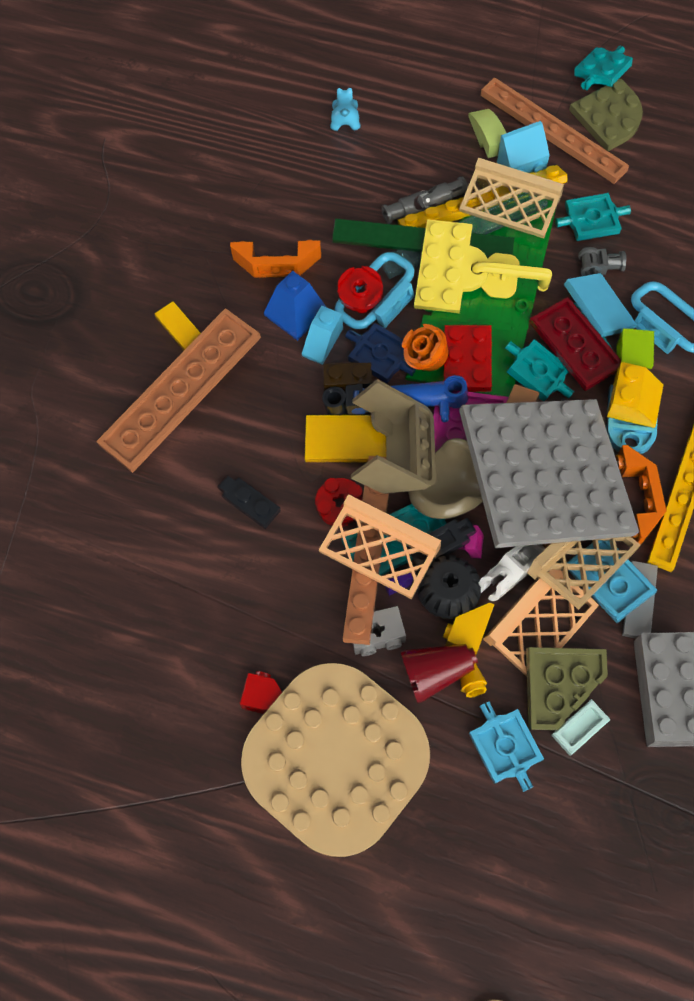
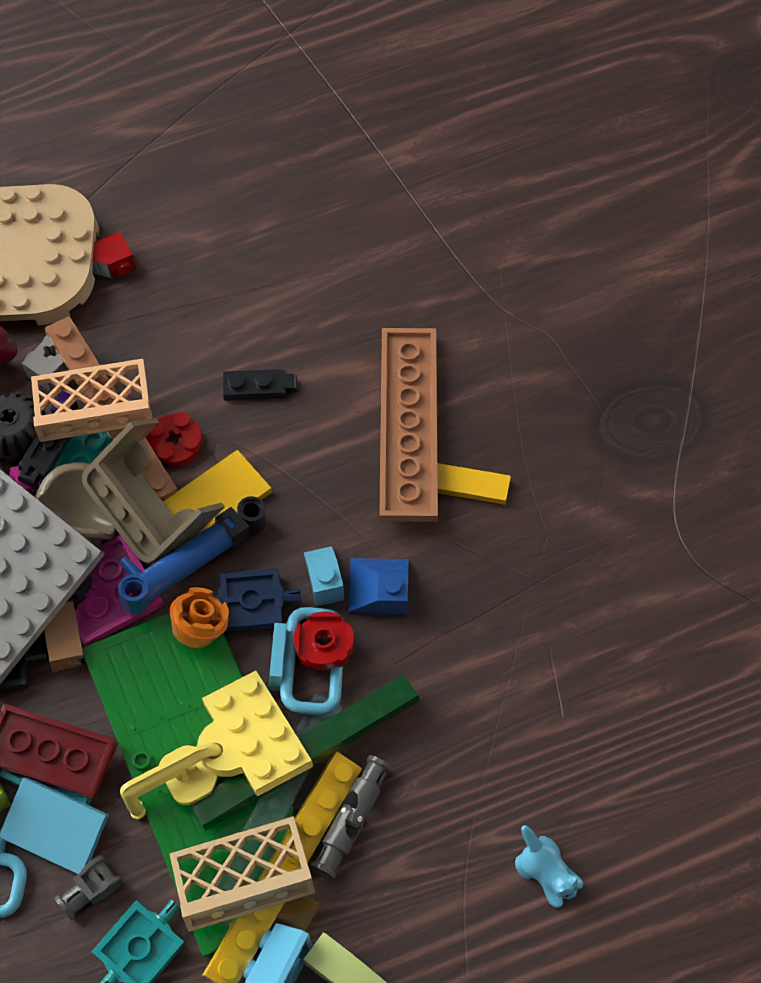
camera: 140 degrees right, 5 degrees down
(276, 266) = (479, 597): orange slope -> none
(347, 374) = (257, 543): dark brown brick -> none
(470, 355) = (155, 656): red plate -> none
(538, 370) = (70, 692): teal plate -> none

